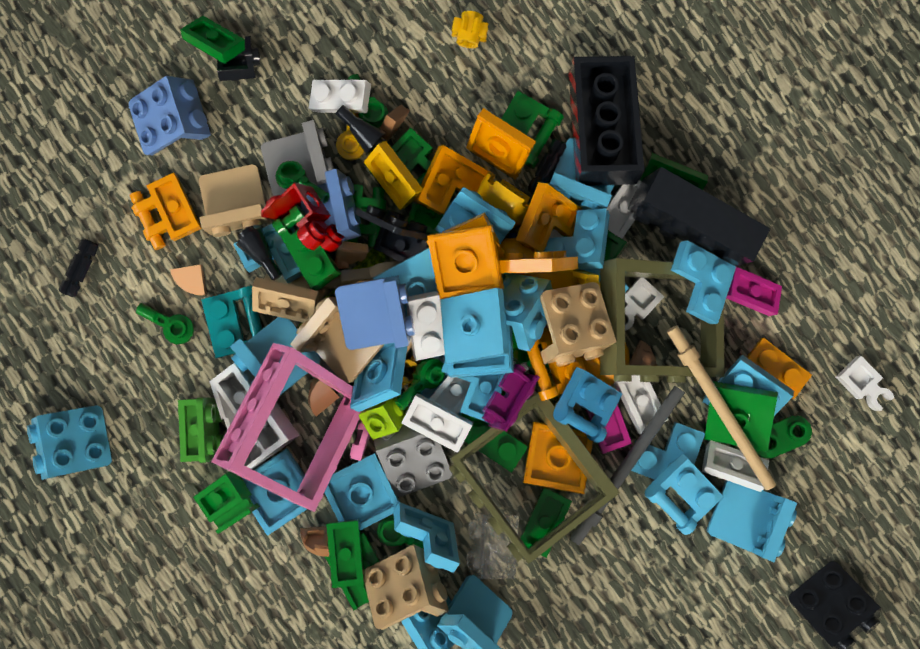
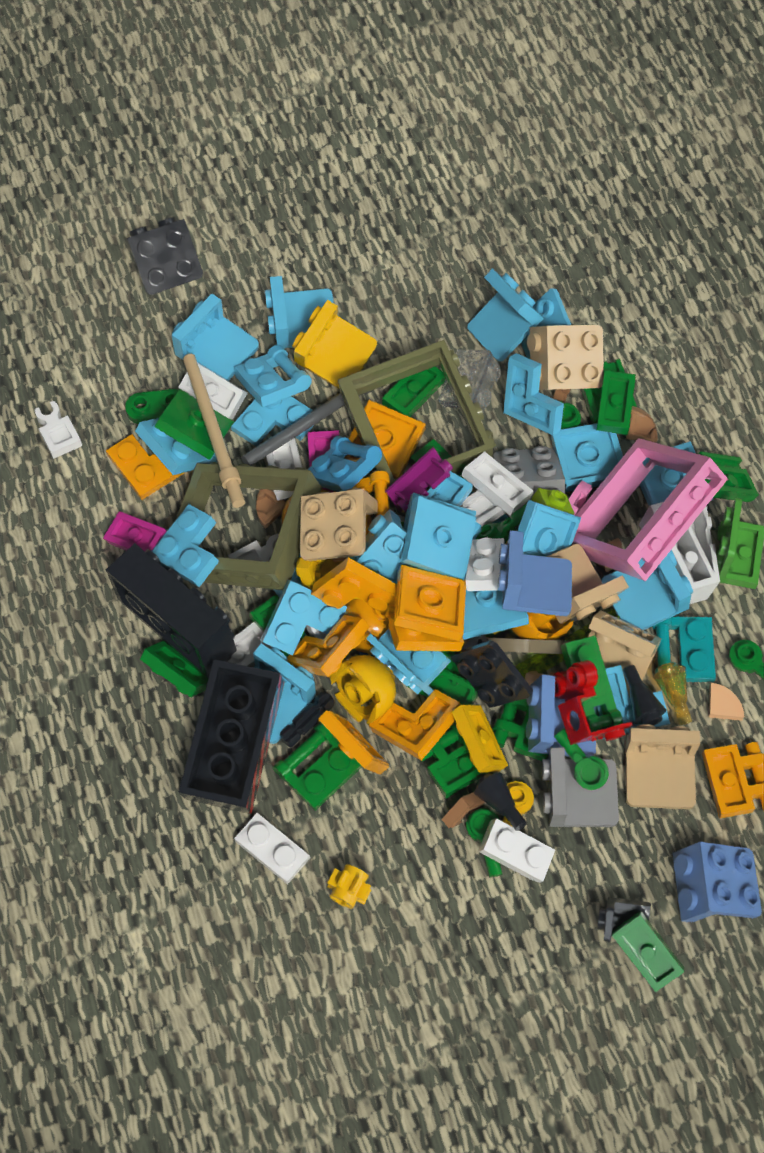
camera: 160 degrees left, 20 degrees down
(236, 277) = (673, 684): none -> clear yellow cone
(542, 50) = (272, 848): none -> white plate
(634, 542) = (332, 346): none -> yellow bracket
(678, 574) = (292, 310): none -> medium azure bracket

